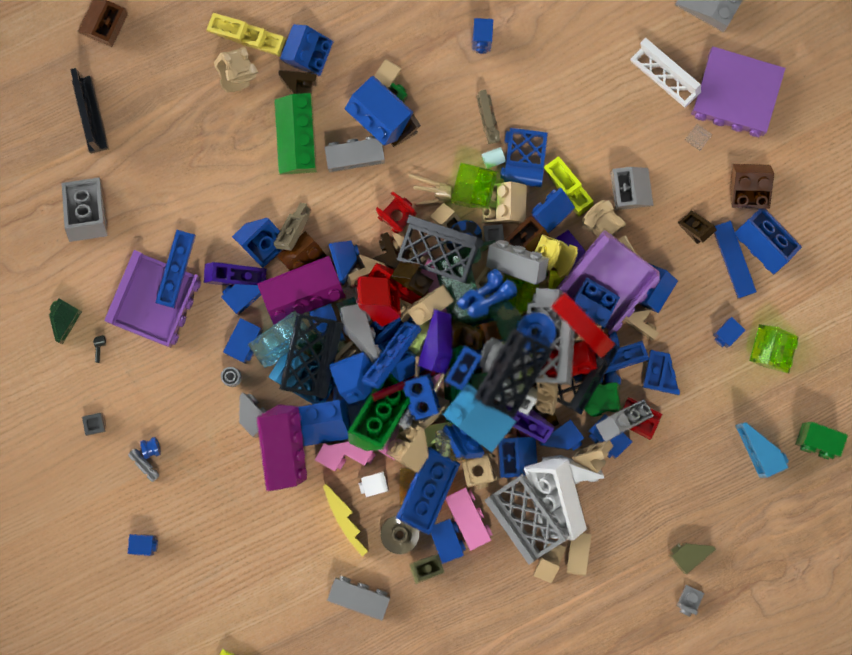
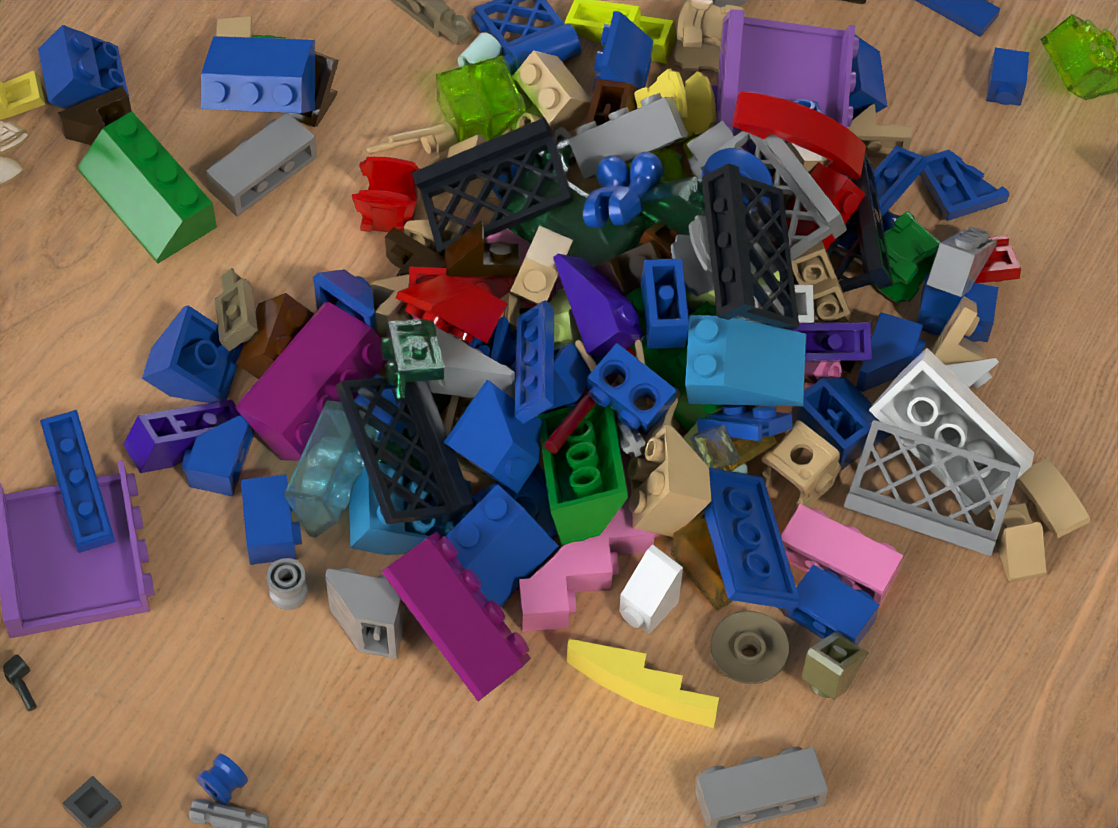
camera: 35 degrees left, 25 degrees down
(341, 318) = (411, 353): none -> clear green bracket

